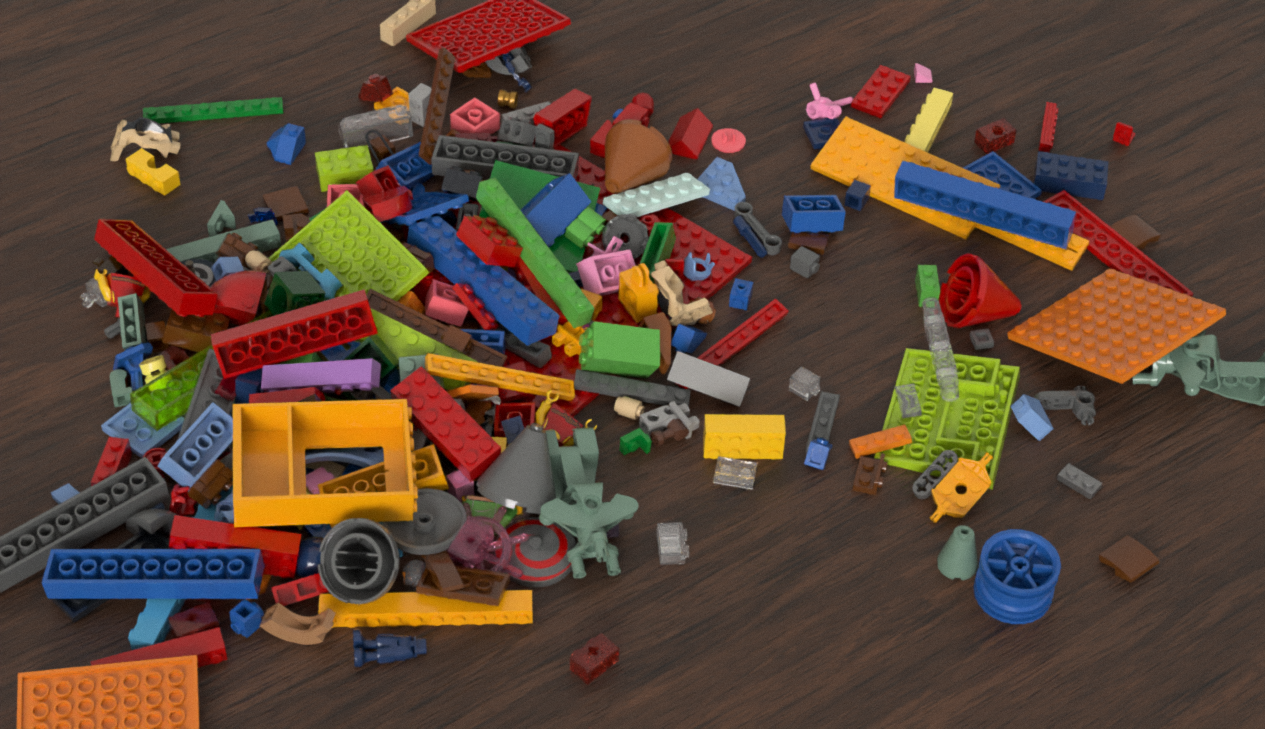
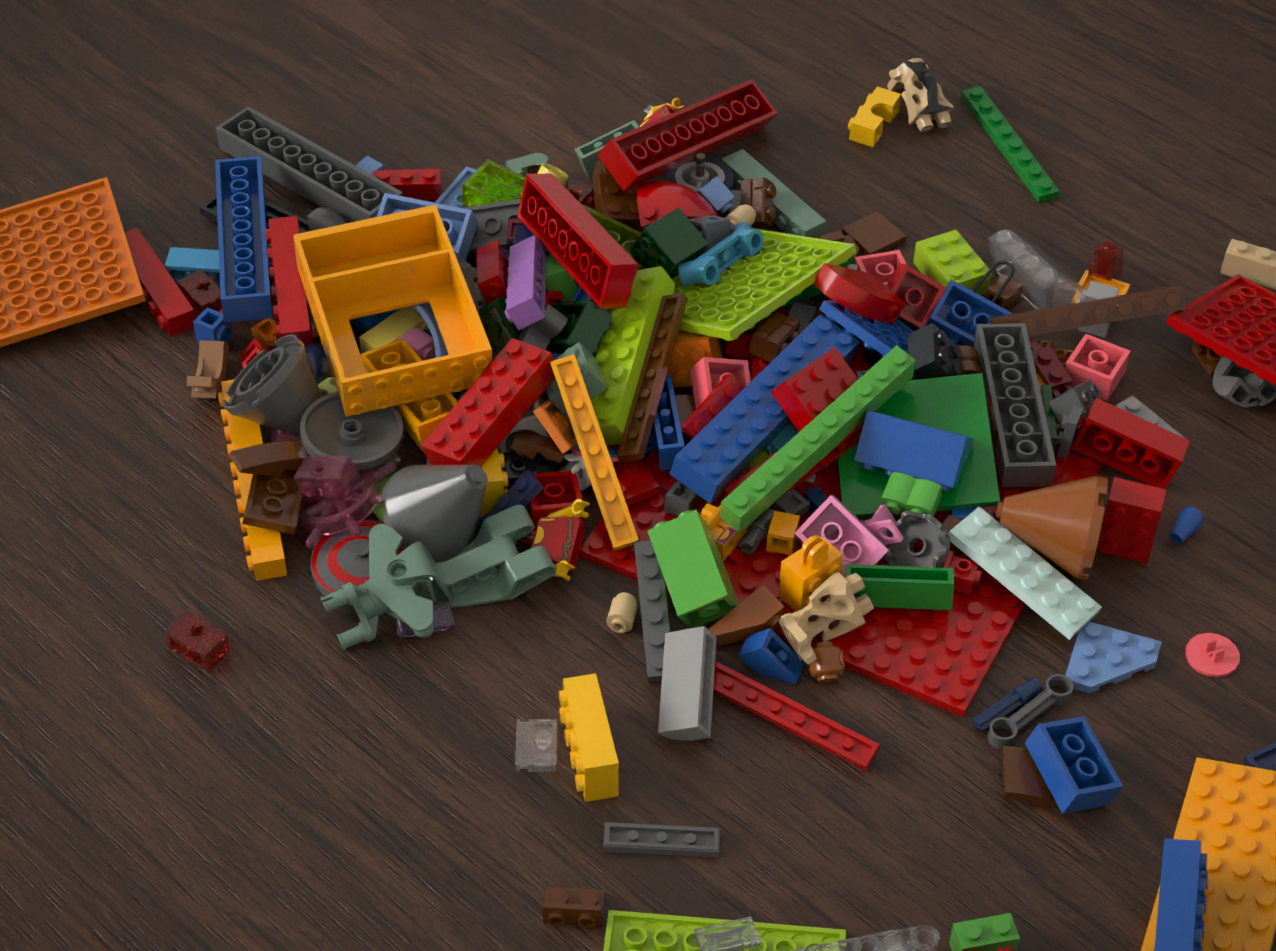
camera: 80 degrees right, 0 degrees up
(130, 360) = (565, 160): blue piece -> none
(221, 218) = (822, 184): sand green slope -> none
(262, 214) = (837, 218): clear blue plate -> none
(287, 143) = (975, 214): blue slope -> none
(388, 647) = (193, 456): dark blue piece -> none
(457, 339) = (635, 395): reddish brown brick -> none
(507, 99) = (1165, 395): pearl gold wheel -> none
(508, 58) = (1215, 378): dark blue piece -> none
(634, 440) = (563, 628): green bracket -> none
(644, 101) = (1225, 538): red head -> none
(671, 417) = (611, 660): light grey hips -> none
(671, 543) = (395, 691): clear brick -> none
(677, 266) = (882, 613): red bracket -> none
(690, 134) = (1194, 607): red slope -> none
(690, 267) = (908, 628): medium blue piece -> none
(741, 294) = (878, 706): blue brick -> none
(804, 383) = (724, 803): clear brick -> none
(805, 262) = (976, 775): dark grey brick -> none
(818, 453) = (592, 832): bracket -> none
(857, 195) = (1154, 825): dark blue brick -> none
(880, 441) = (638, 911): orange plate -> none

